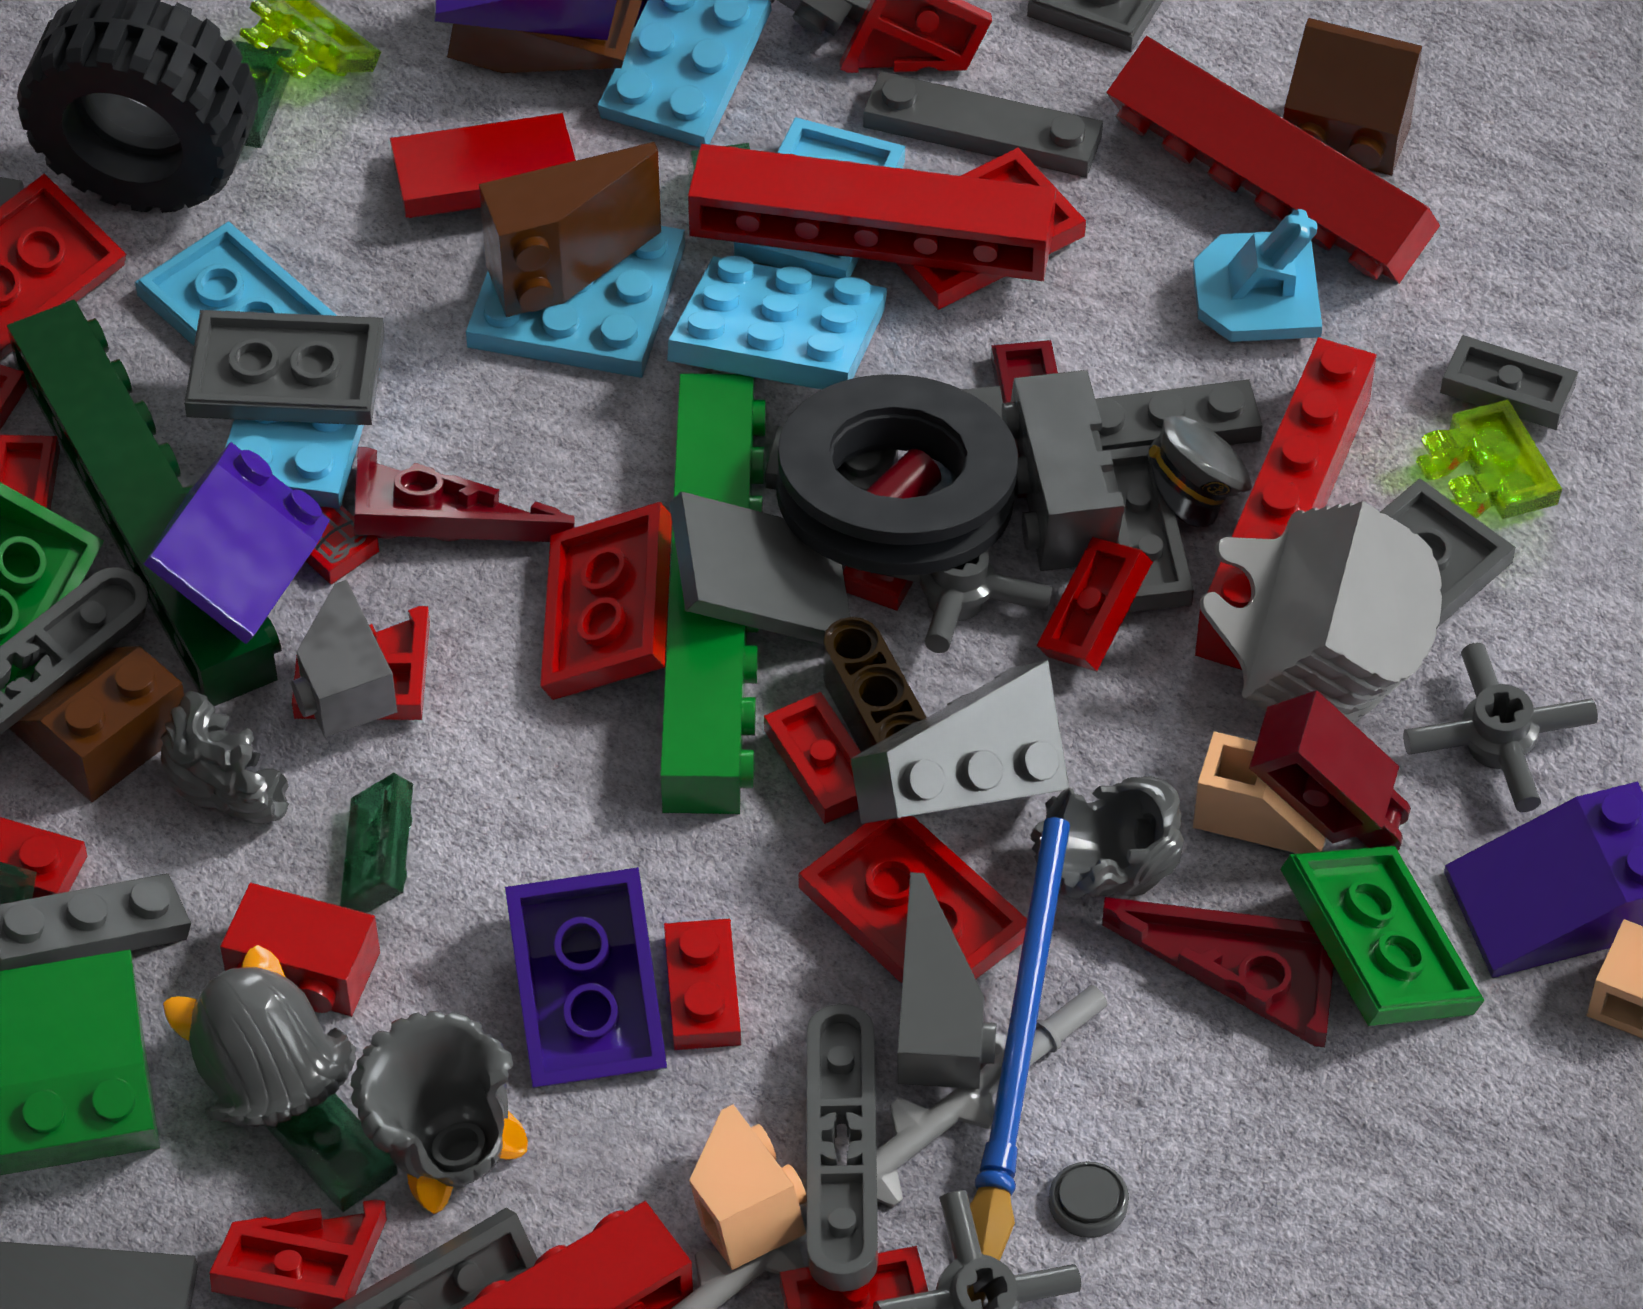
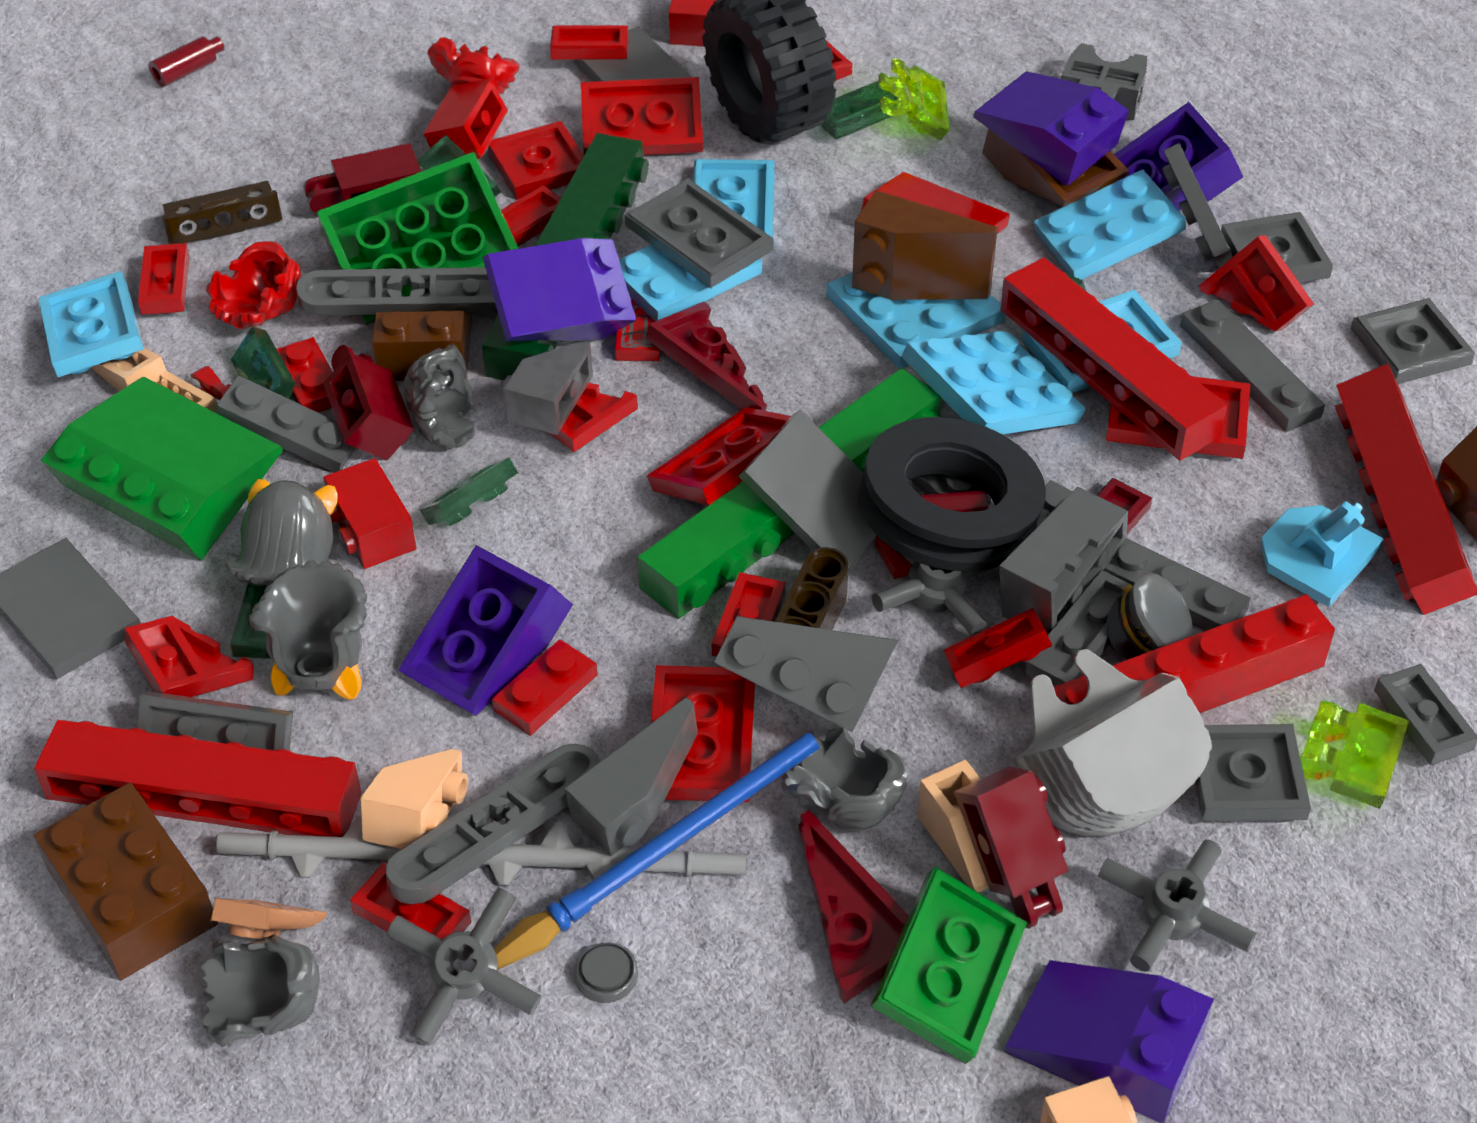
camera: 45 degrees right, 5 degrees down
(144, 831) = (367, 404): none -> dark red brick

